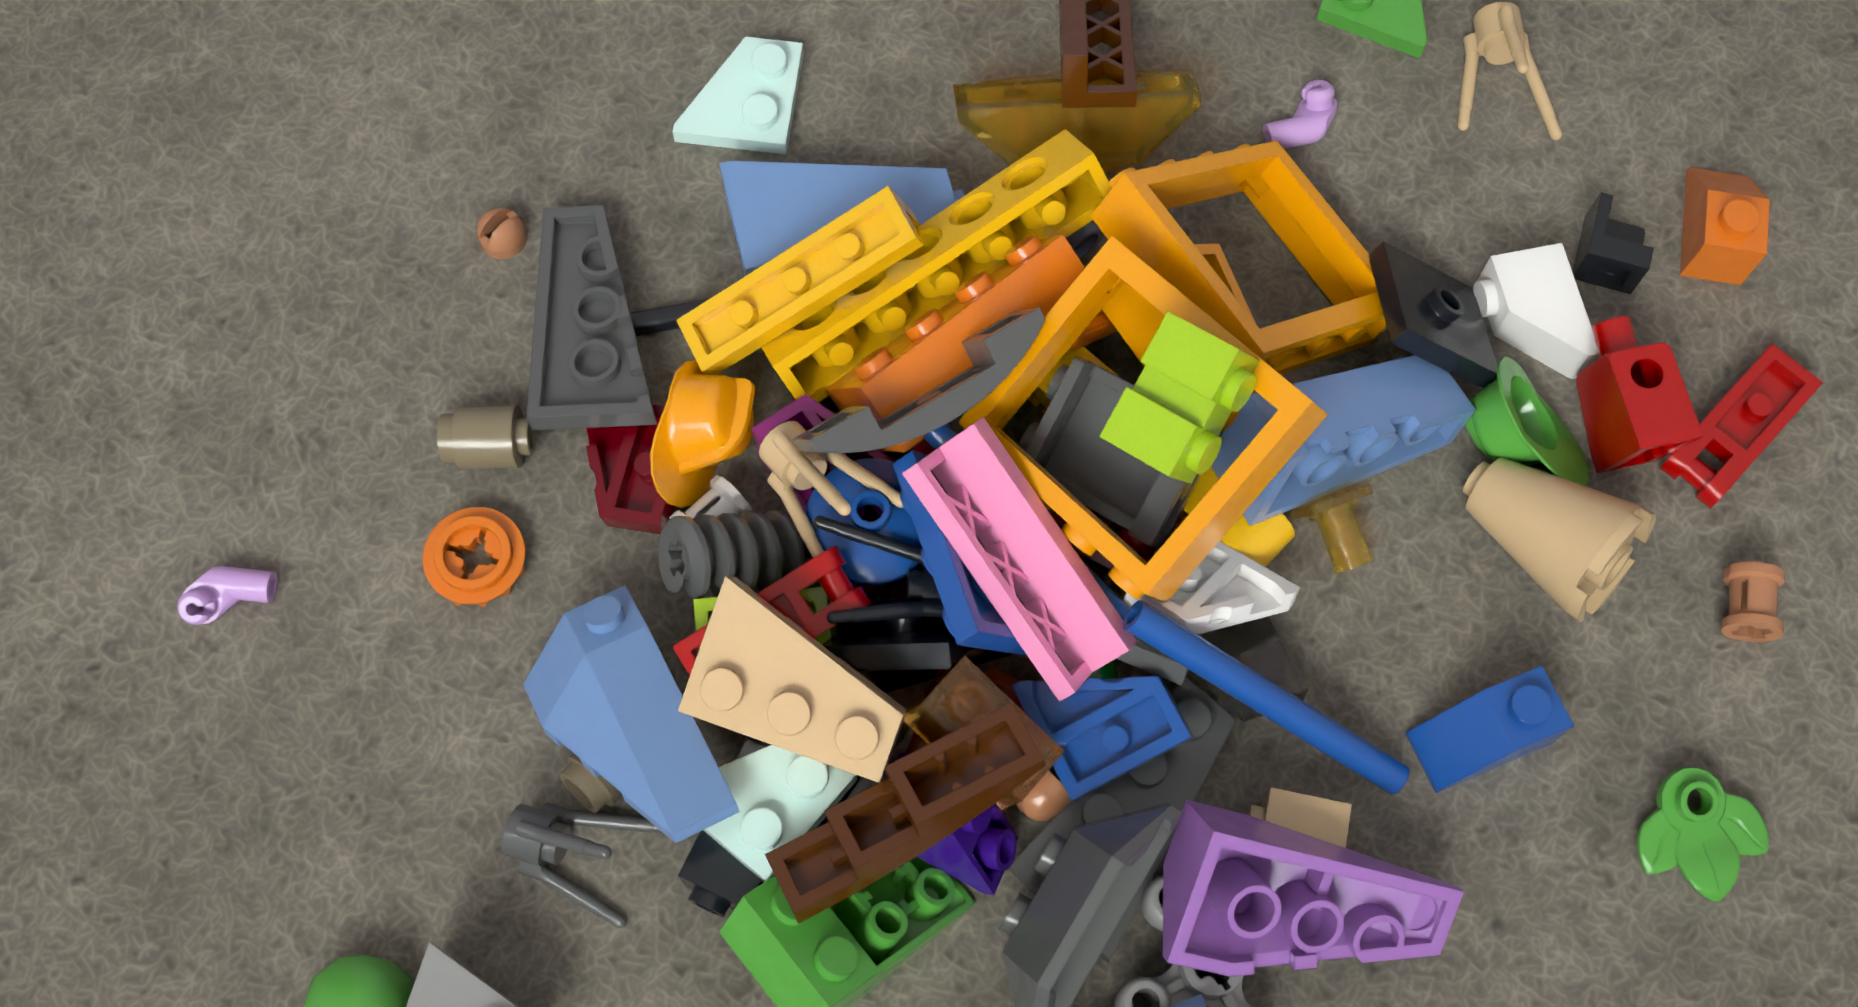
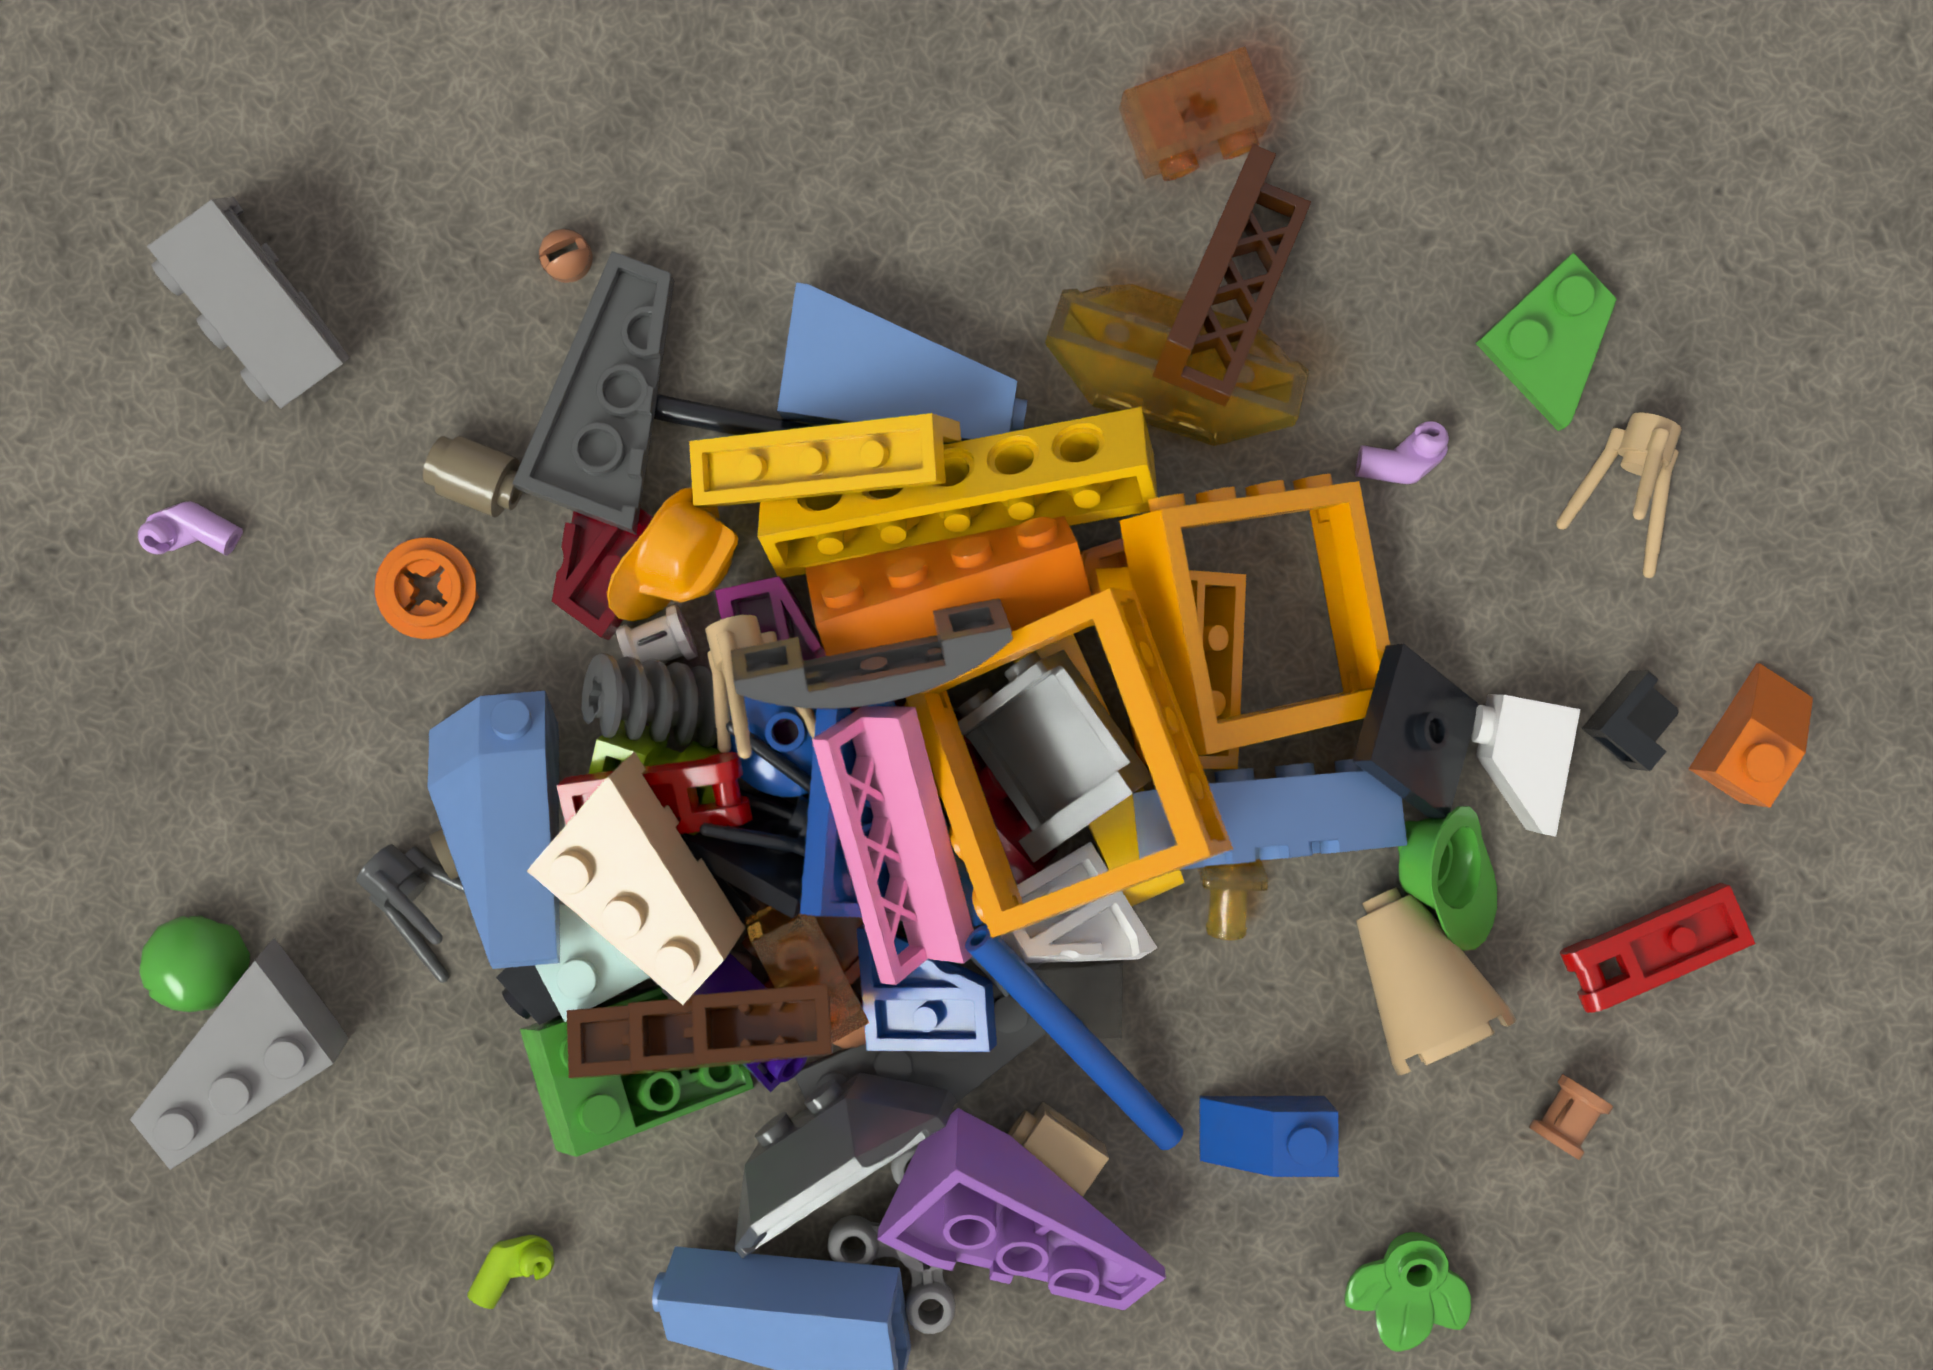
camera: 30 degrees right, 20 degrees up
(224, 360) = (247, 302): none -> light grey wedge
(747, 99) = (862, 202): light aqua wing -> none
(1181, 400) = (1092, 794): lime brick -> none
(1633, 400) = (1560, 899): red torso -> none

